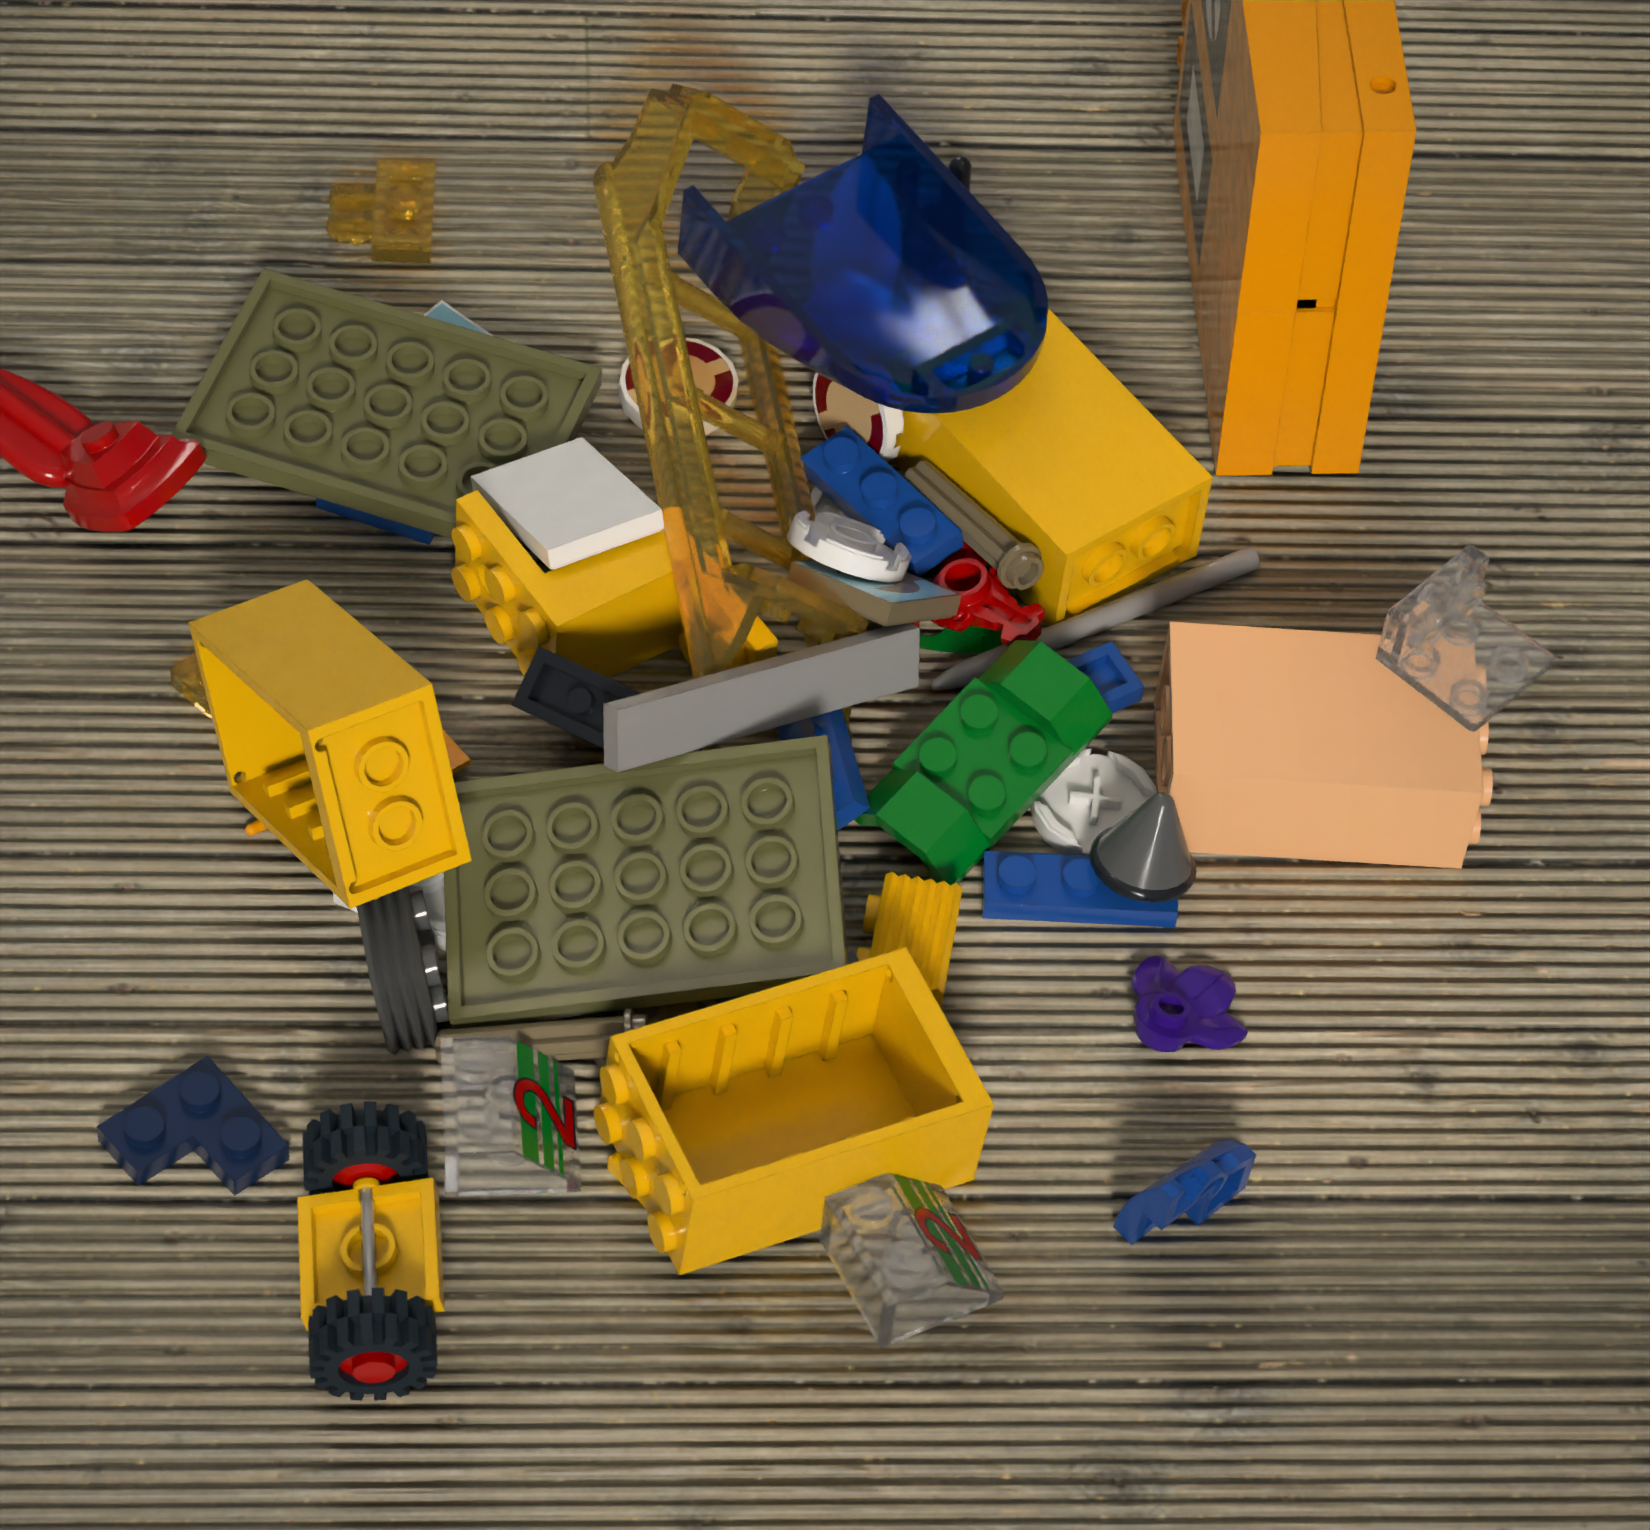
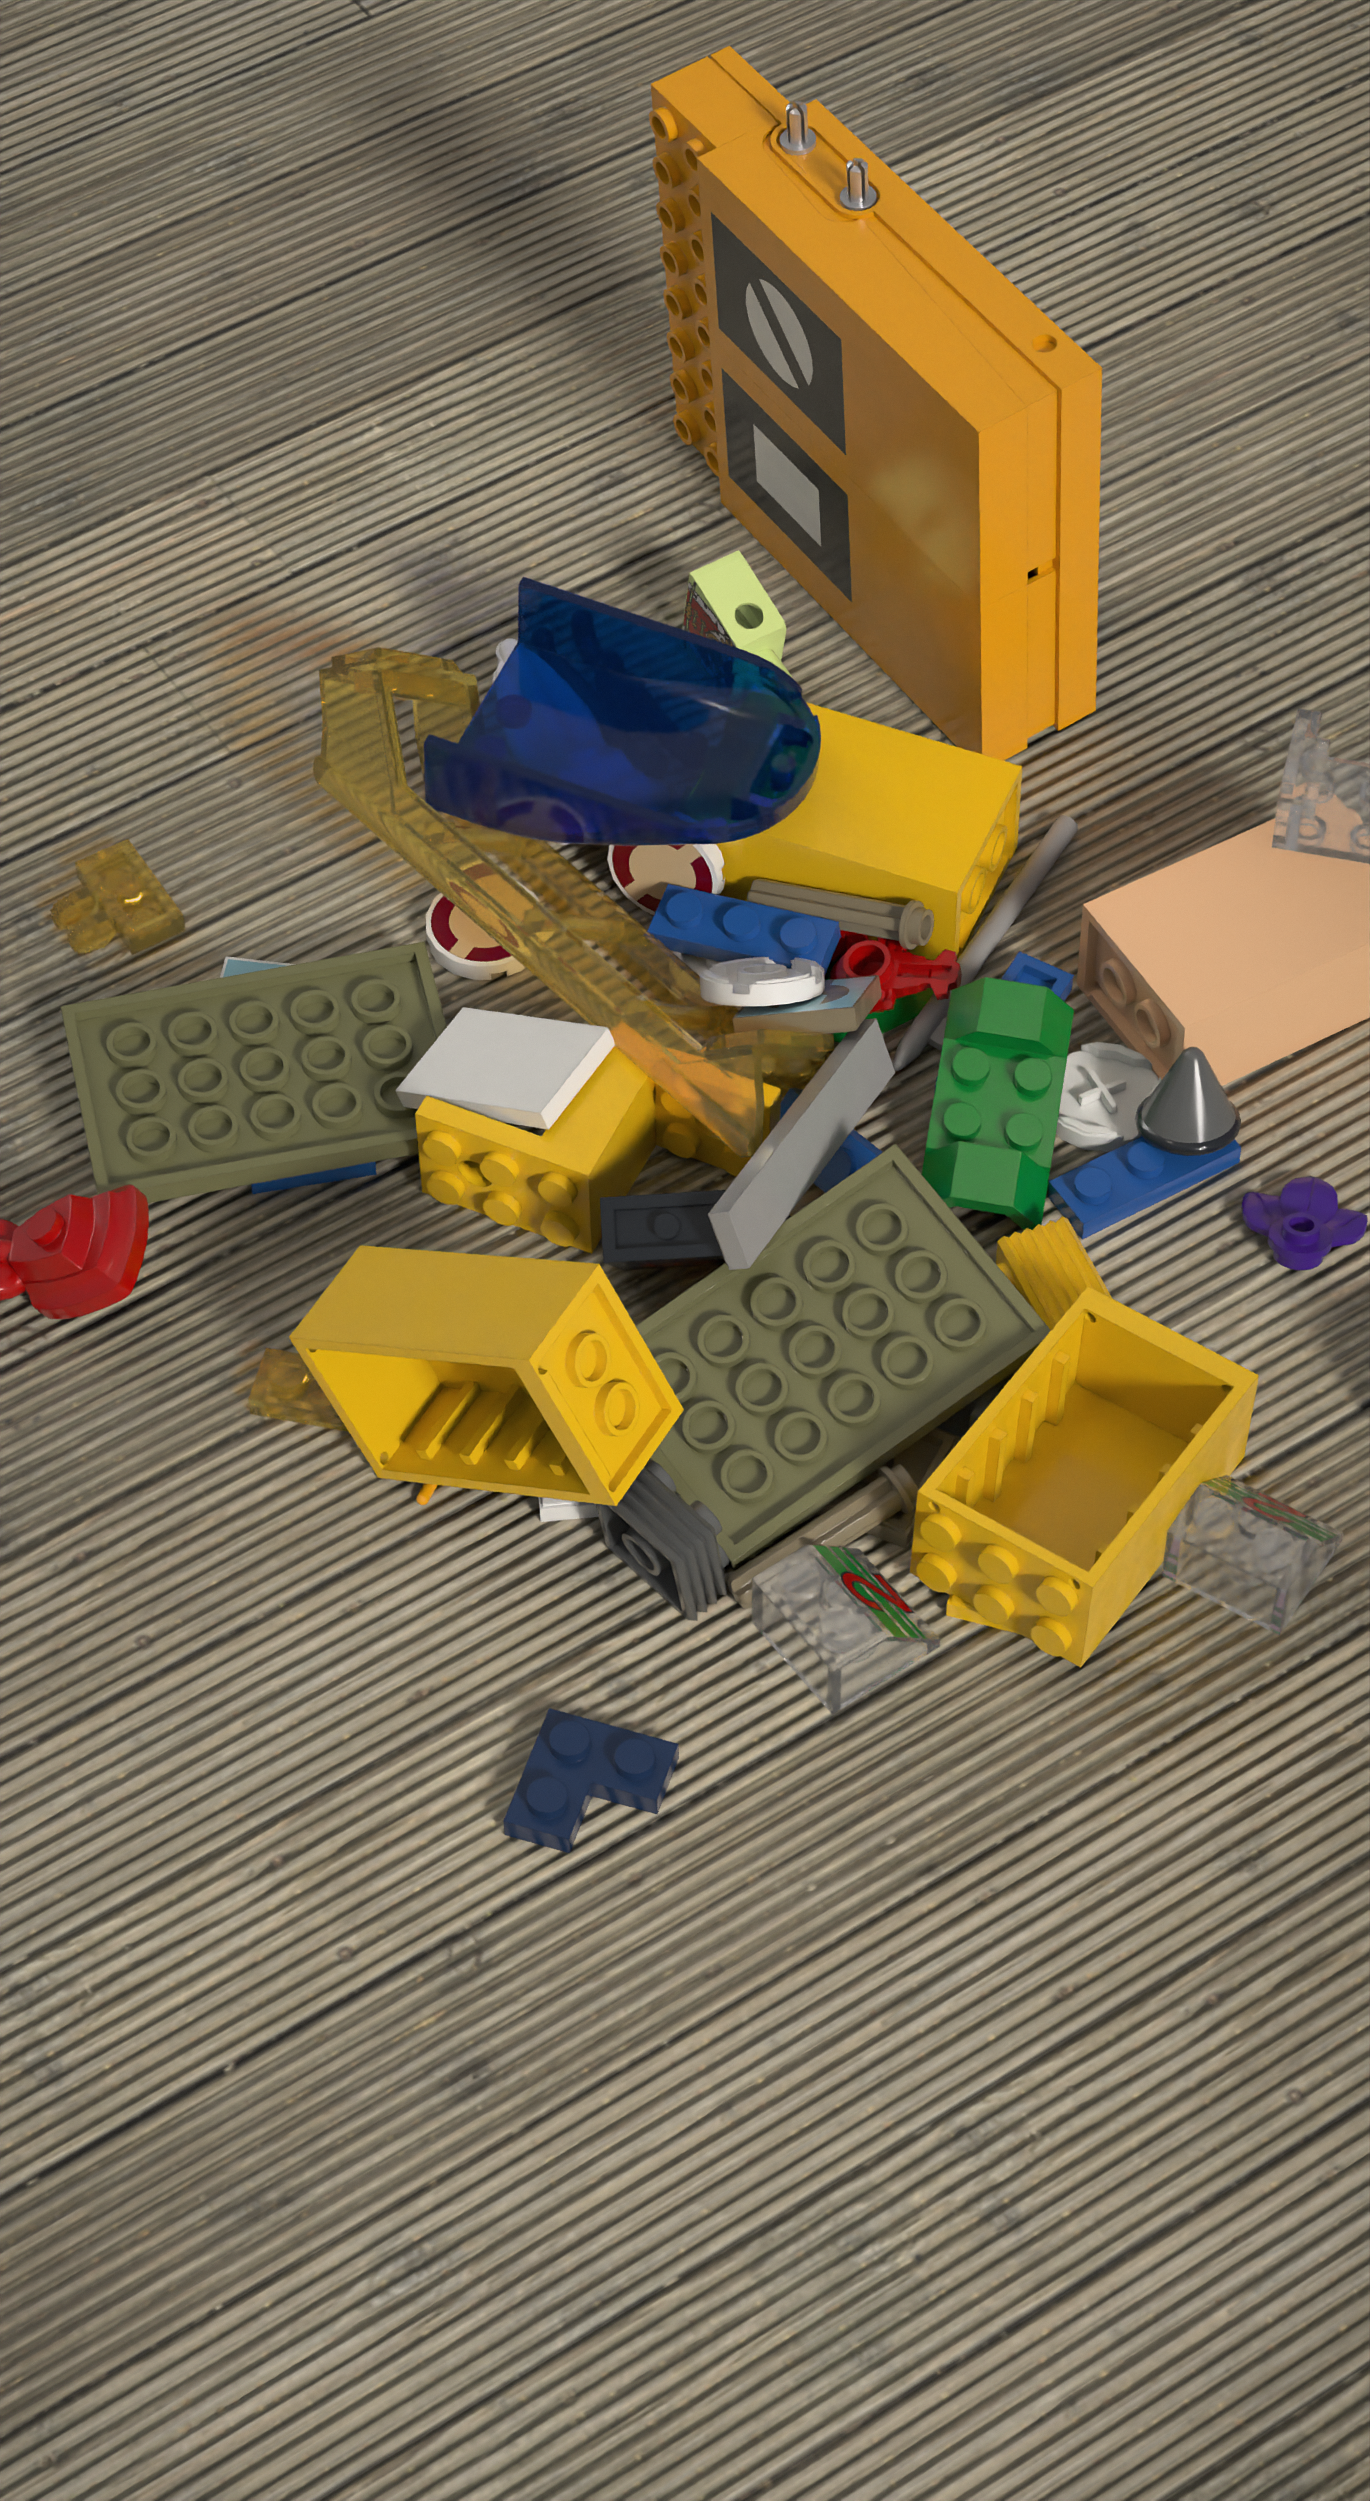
camera: 25 degrees left, 0 degrees up
(369, 1252) = (828, 1790): plate -> none
(1082, 258) = (734, 609): none -> yellowish green torso

